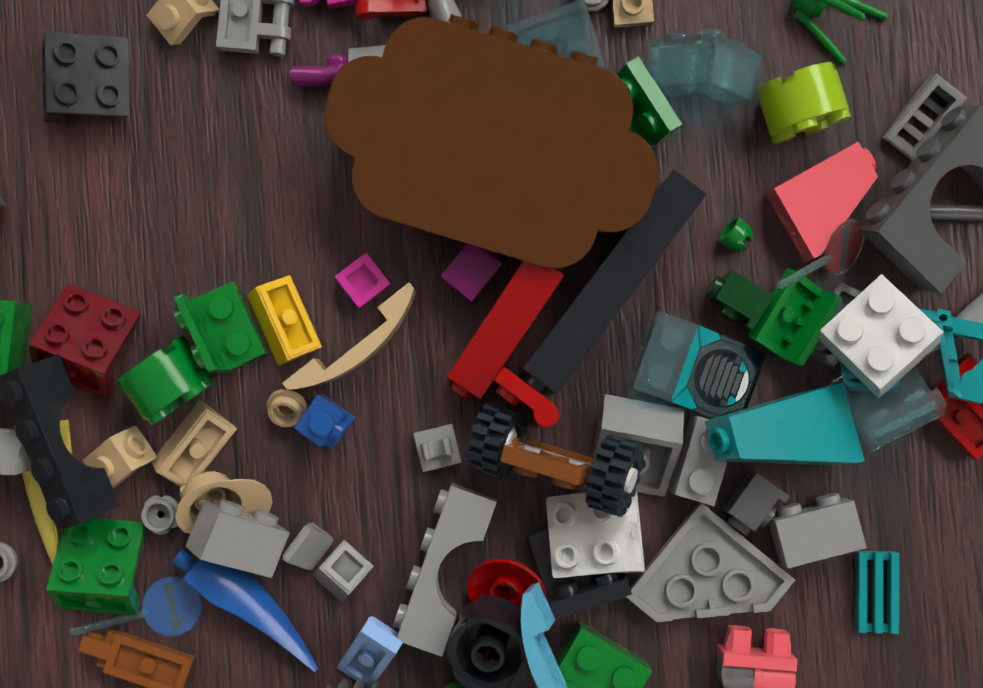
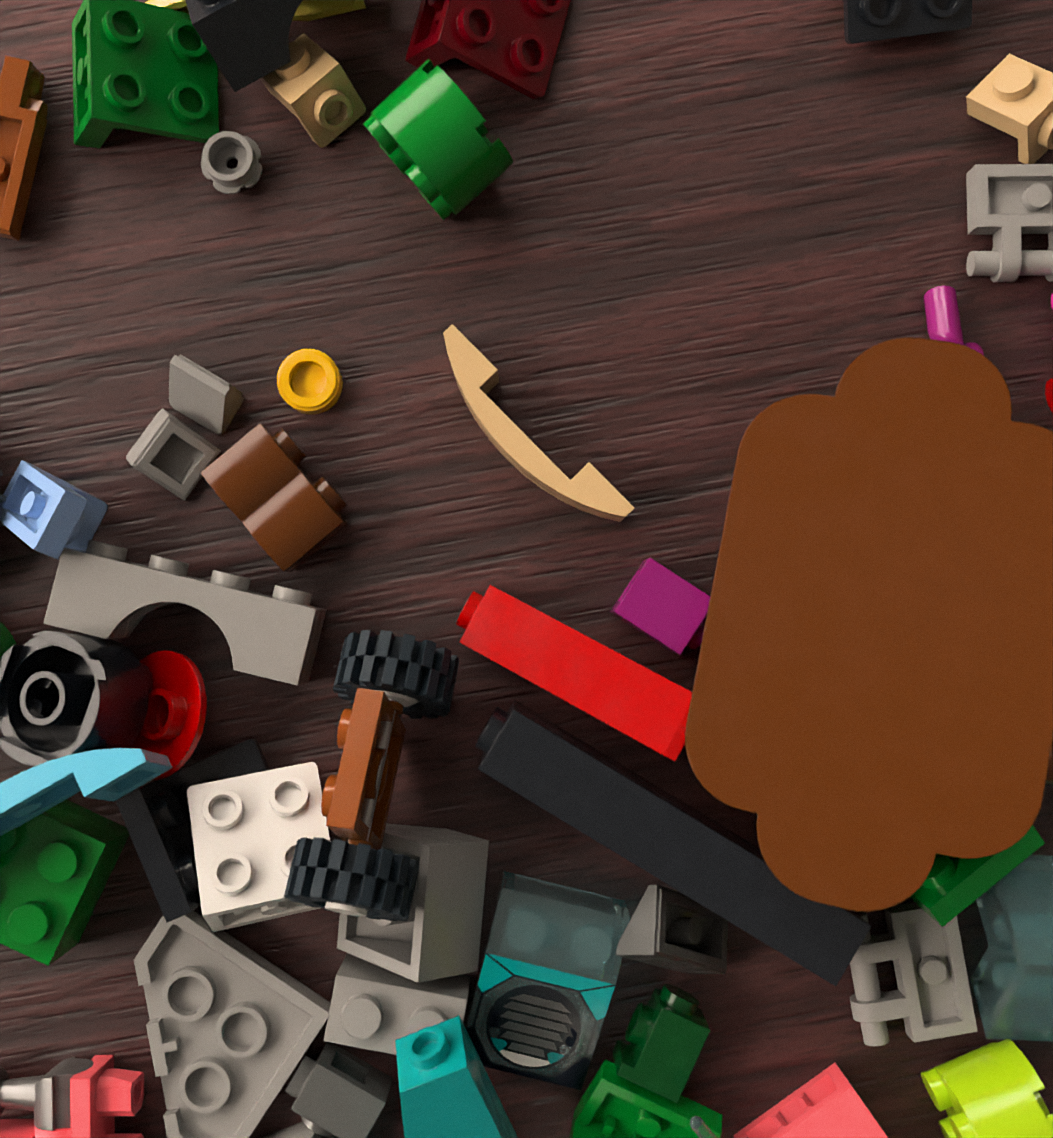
camera: 80 degrees right, 0 degrees up
(168, 608) = (93, 192): clear light blue piece -> none
(193, 444) = (342, 202): tan slope -> none
(213, 487) = (254, 246): tan piece -> none
(220, 329) = (527, 216): green bracket -> none
(237, 538) = (199, 280): light grey brick -> none
(244, 598) = (123, 288): blue piece -> none
(283, 320) = (553, 320): yellow slope -> none
(286, 407) = (415, 337): tan plate -> none
(306, 478) = (309, 381): none -> yellow tile
(324, 422) = (399, 398): blue brick -> none
(363, 280) = (628, 436): dark pink plate -> none
(378, 506) = (276, 497): none -> reddish brown brick
(437, 447) = (378, 581): light grey tile -> none
(516, 390) = (478, 698): red plate -> none
(673, 284) = (675, 934): none -> dark grey slope
(714, 132) = (929, 977): none -> light grey plate
(734, 234) = (767, 1022): green hinge -> none

